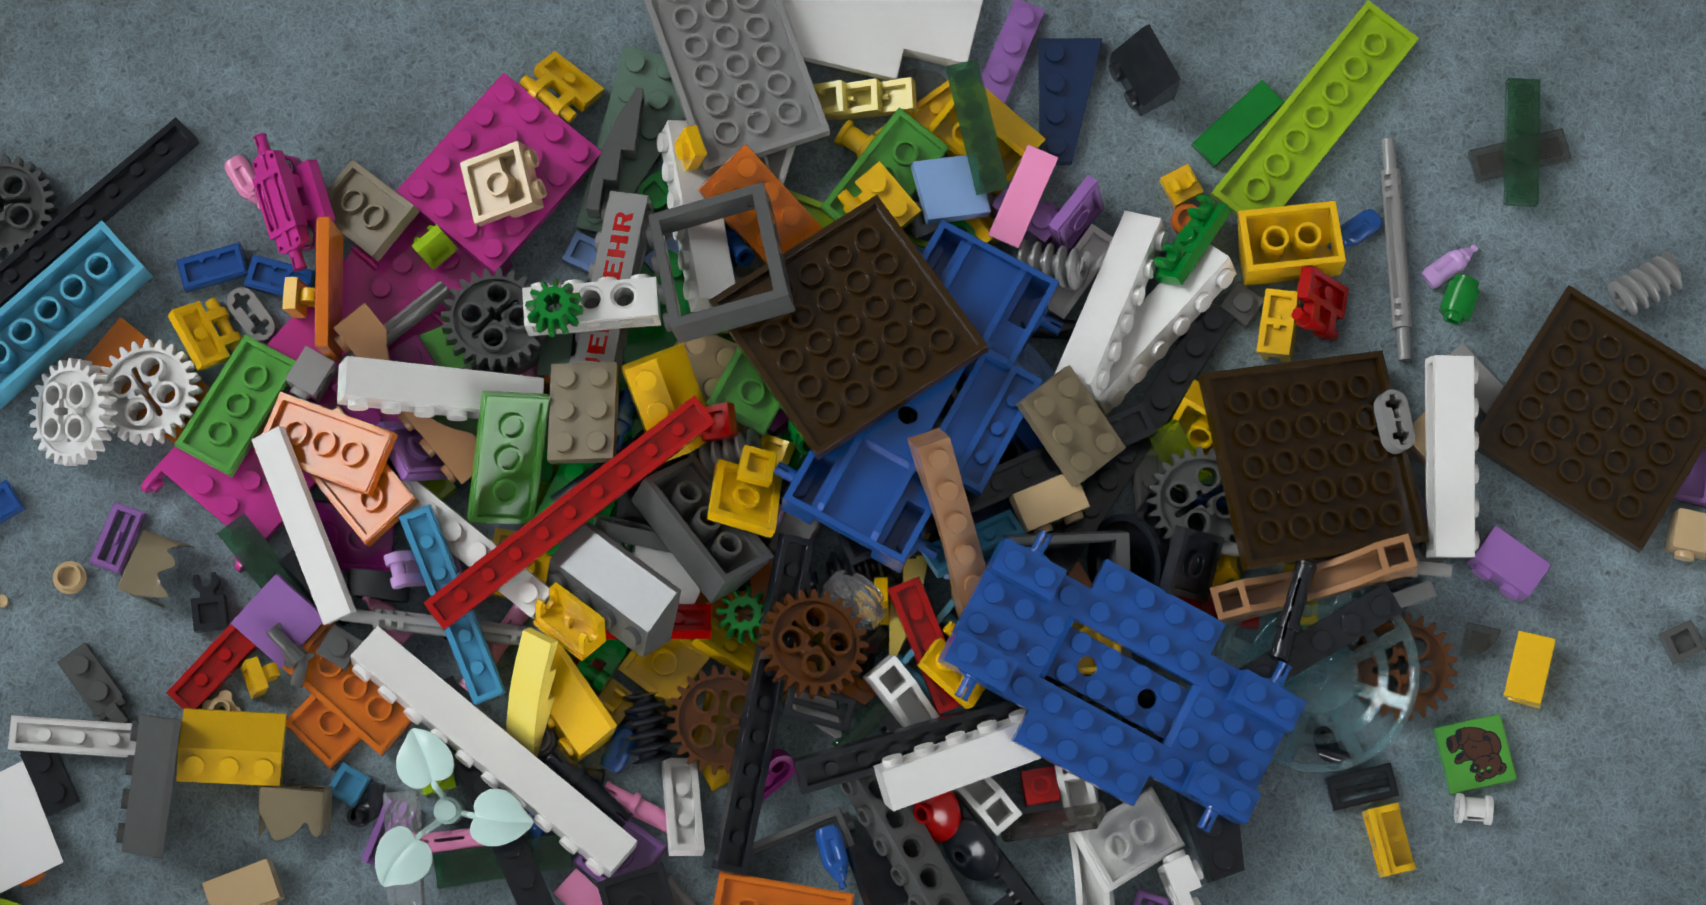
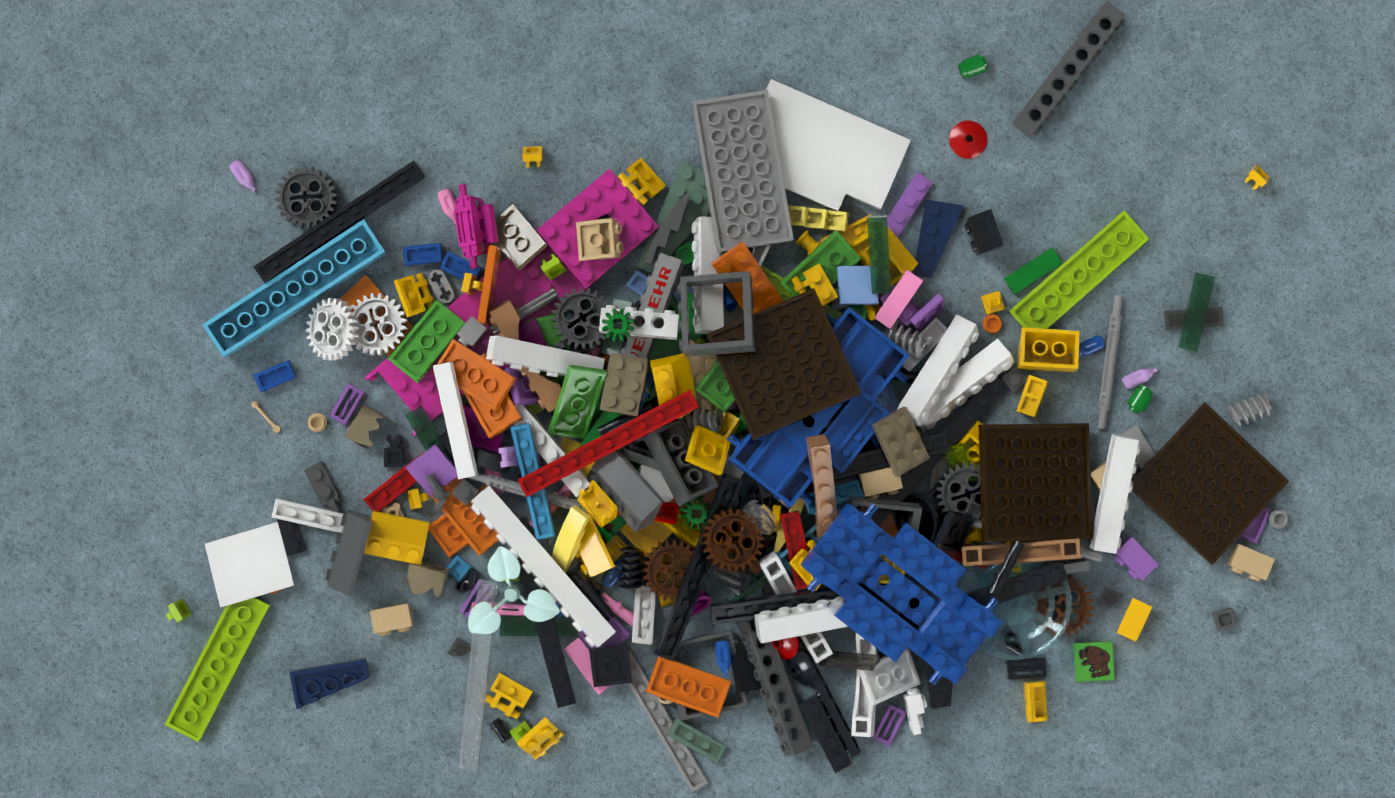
camera: 15 degrees right, 10 degrees up
(373, 75) = (532, 153): none -> yellow tile
(690, 148) = (711, 237): yellow plate -> none
(725, 422) = (703, 401): red plate -> none
(756, 466) = (717, 433): yellow plate -> none
(1039, 787) = (845, 638): red brick -> none
(1191, 241) = (991, 340): green plate -> none
(1320, 295) = (1059, 384): red plate -> none
(1394, 421) = (1086, 467): light grey beam -> none
(1473, 809) = (1086, 692): white bush -> none

